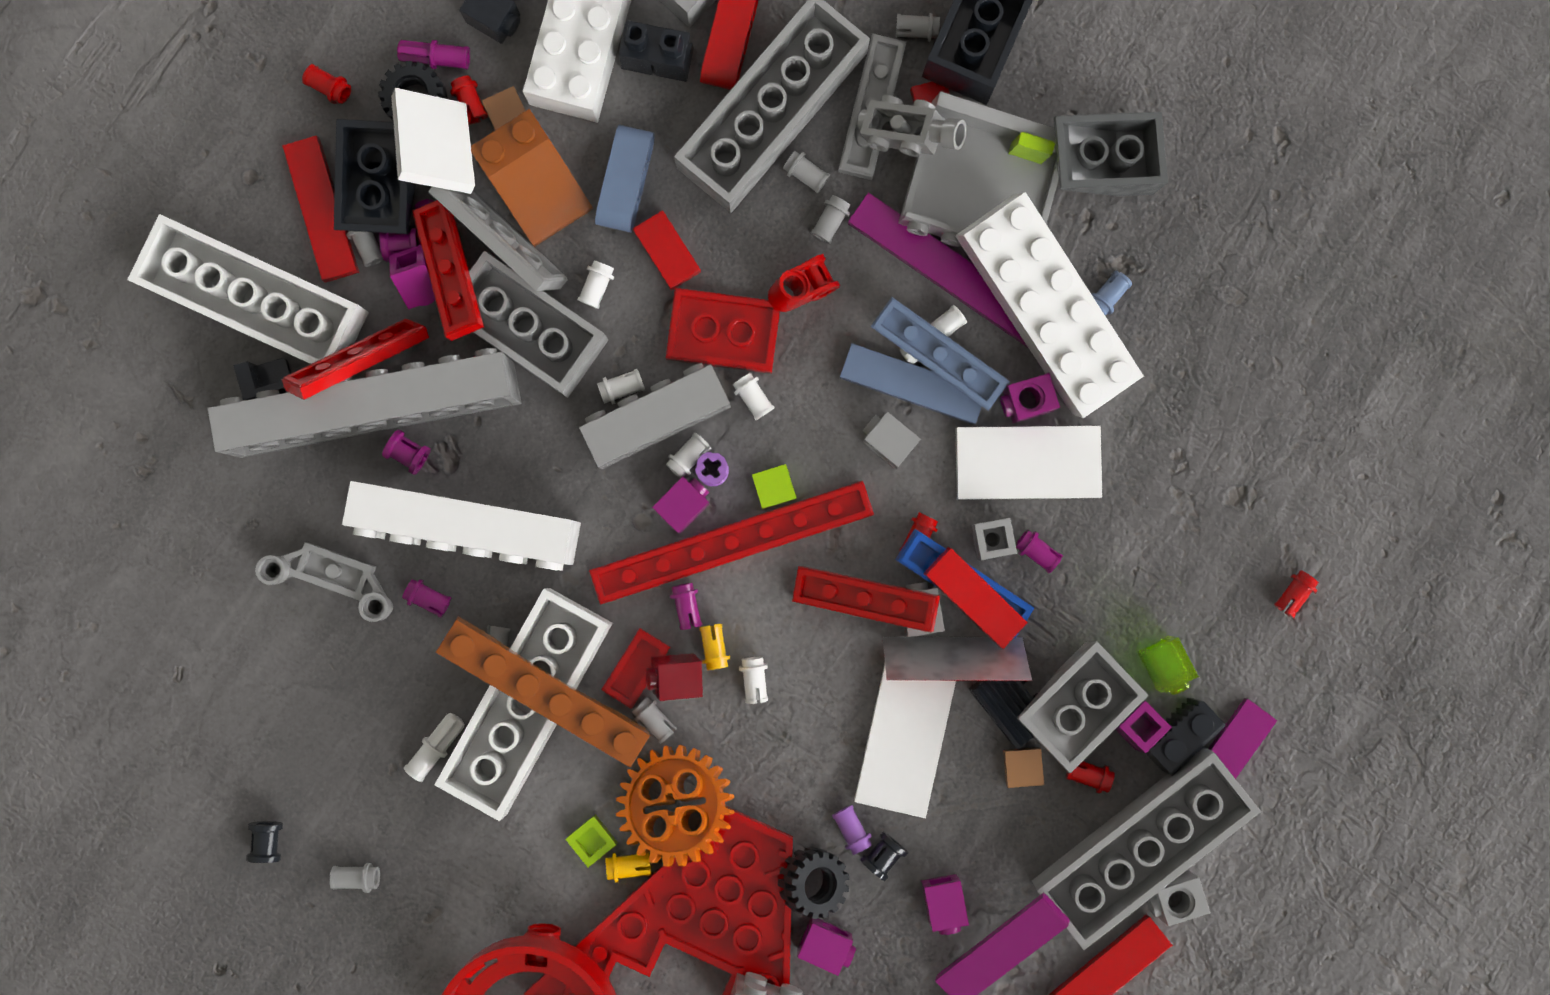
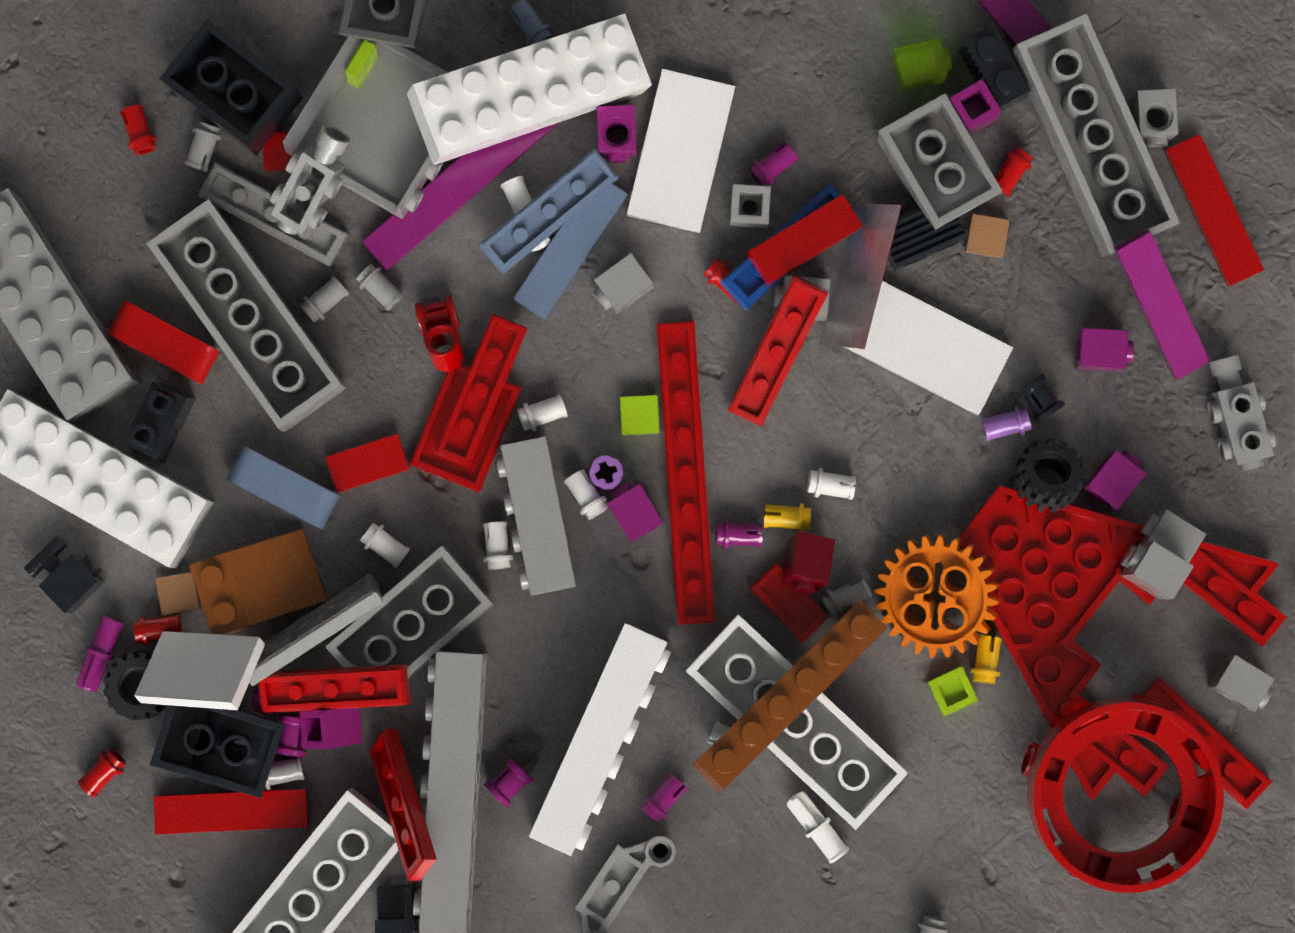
camera: 70 degrees left, 0 degrees up
(758, 335) = (481, 390): none -> red tile

